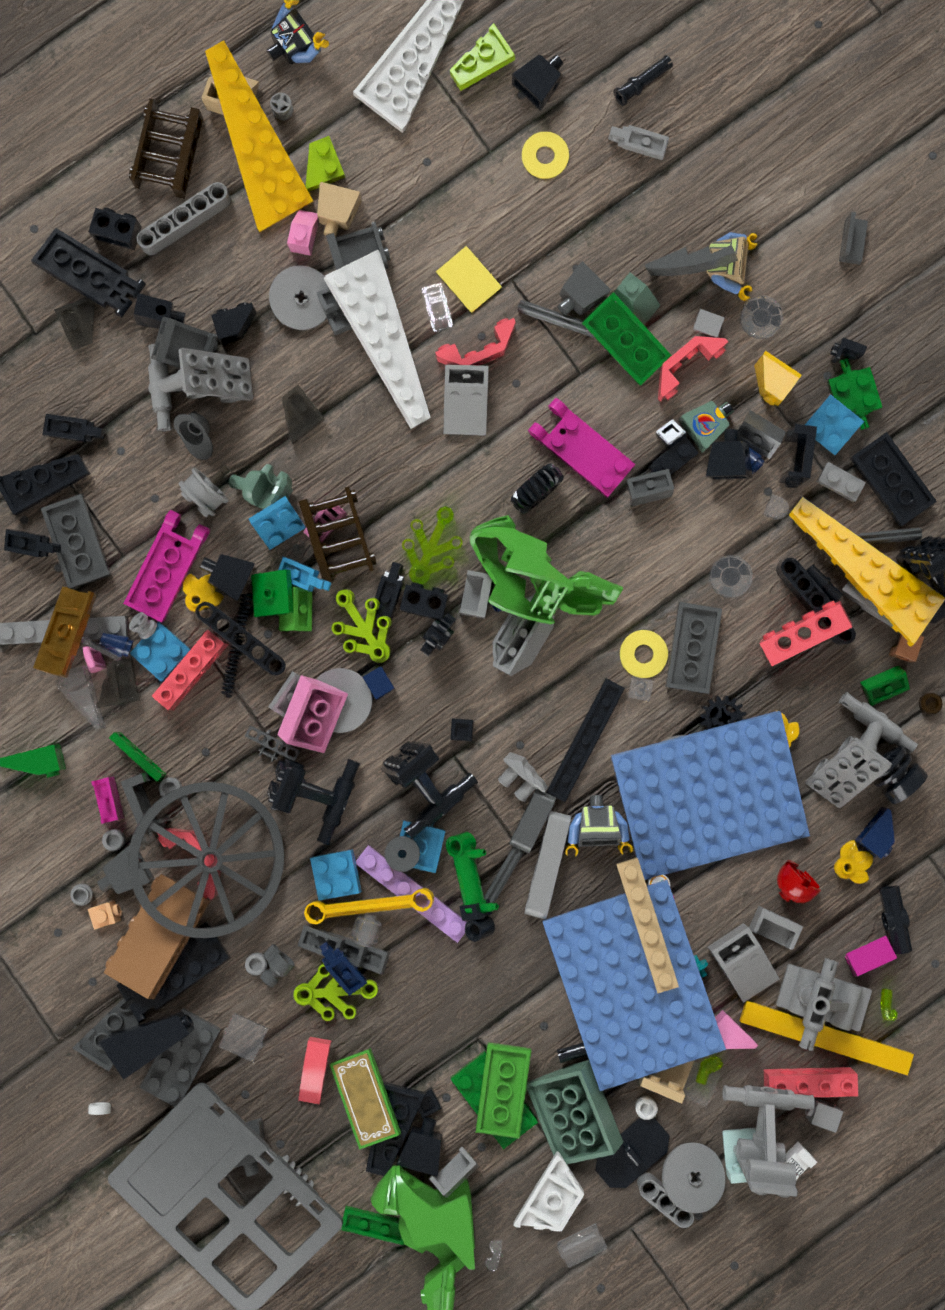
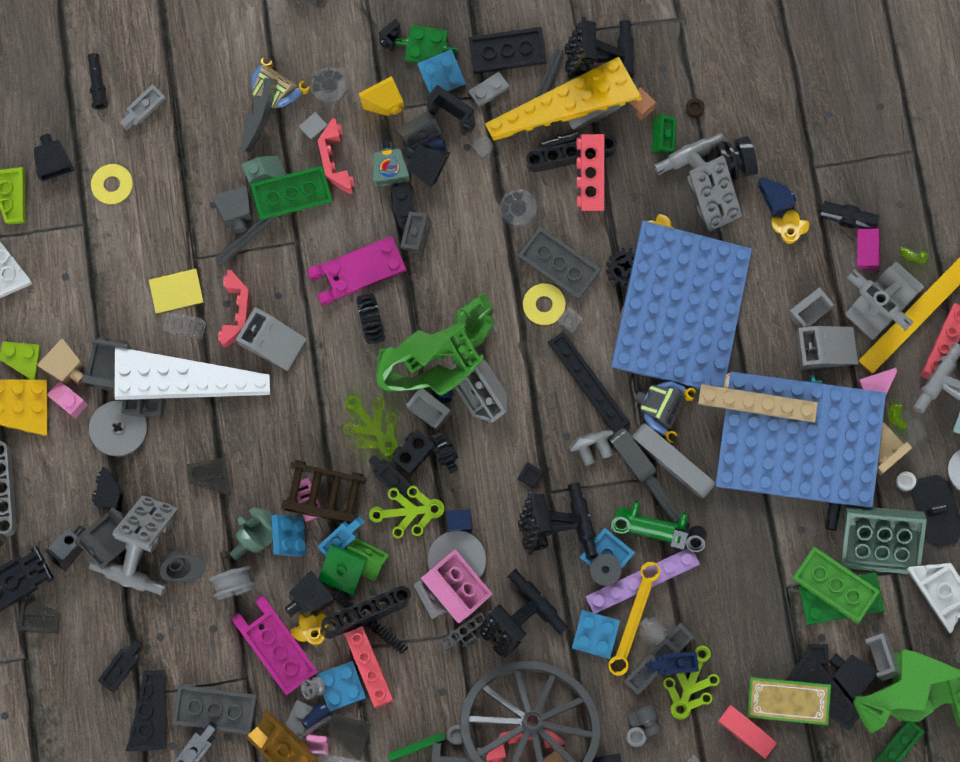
camera: 55 degrees left, 10 degrees down
(670, 433) = (382, 197): tile -> none
(796, 884) = (784, 276): red cylinder -> none

